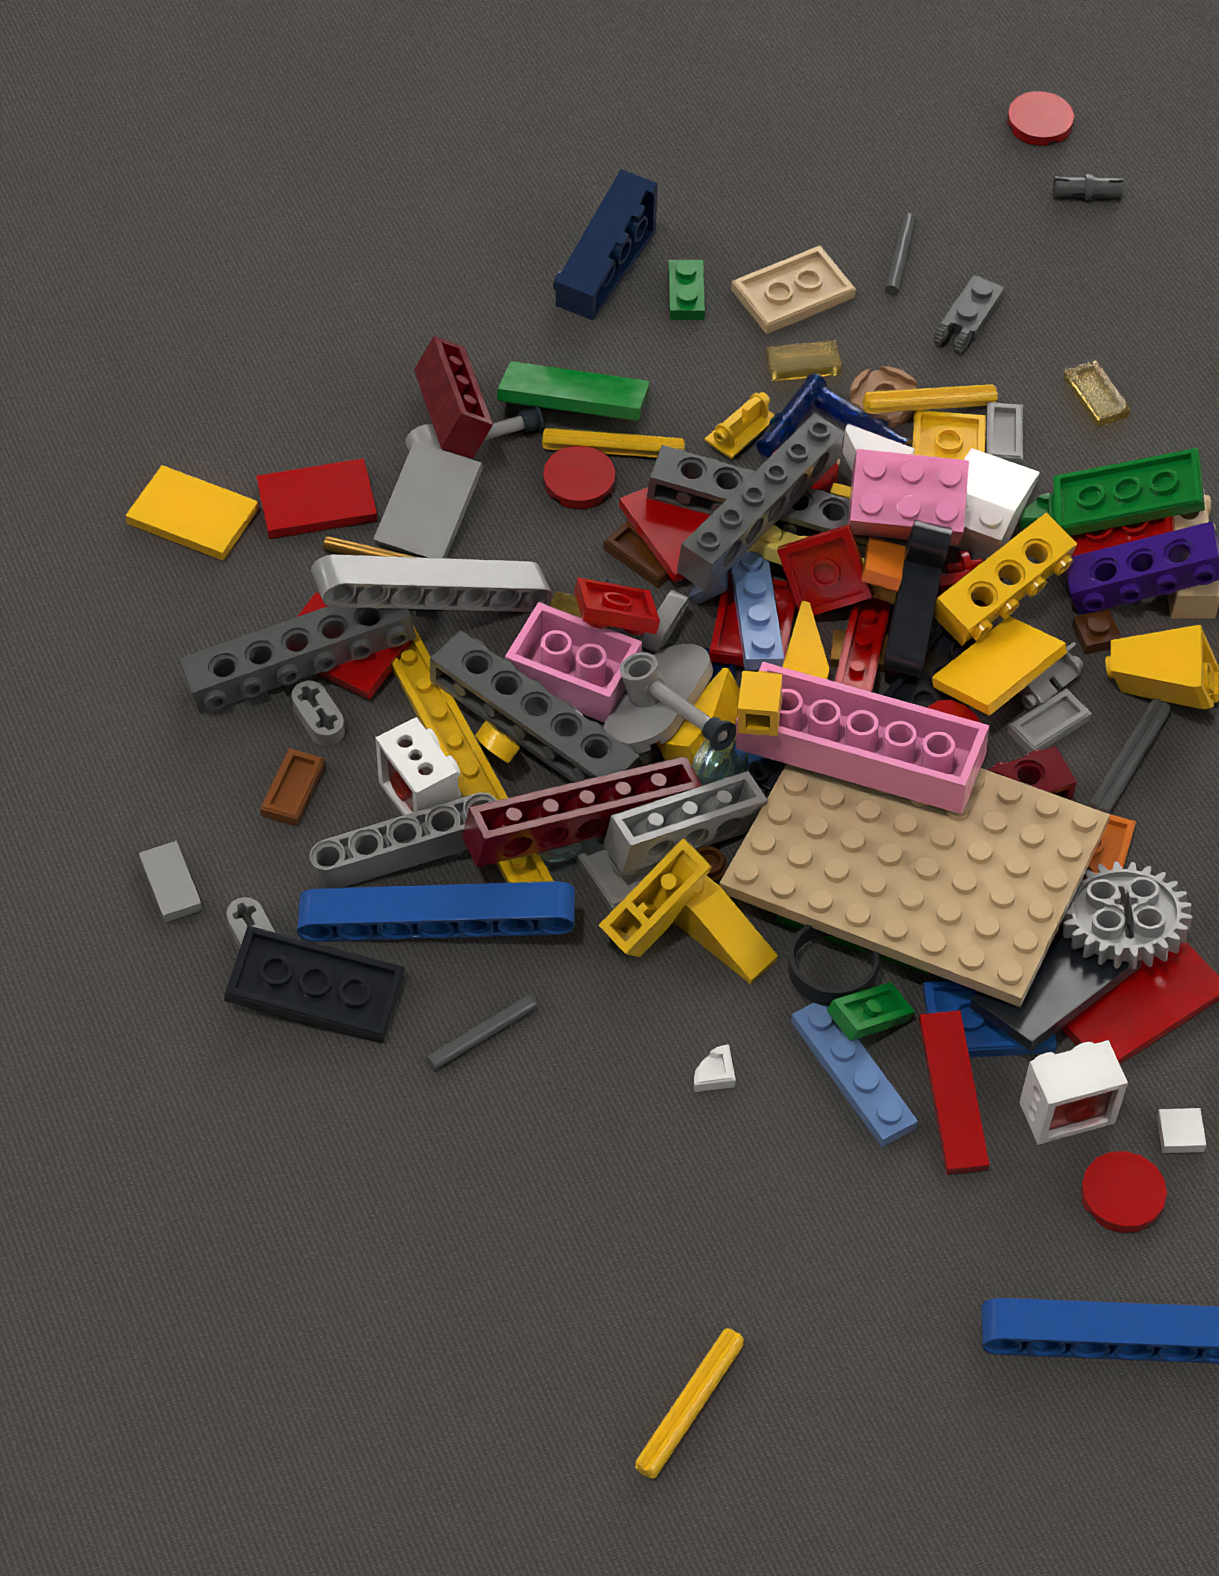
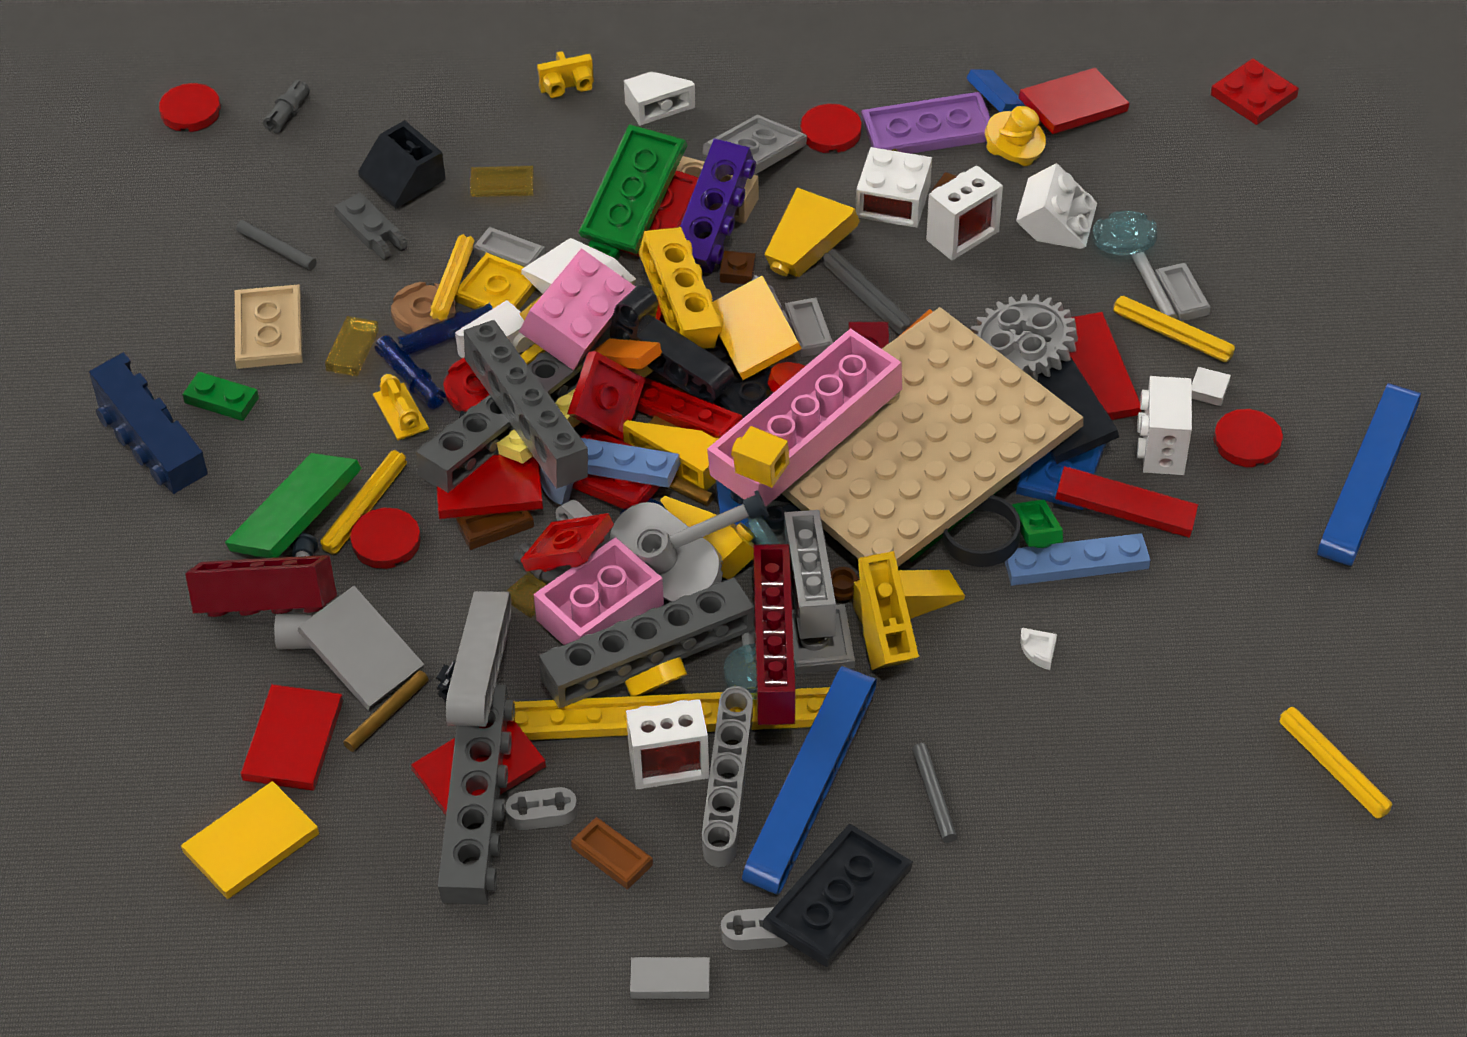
camera: 65 degrees left, 5 degrees down
(1056, 302) = (402, 164): none -> black slope

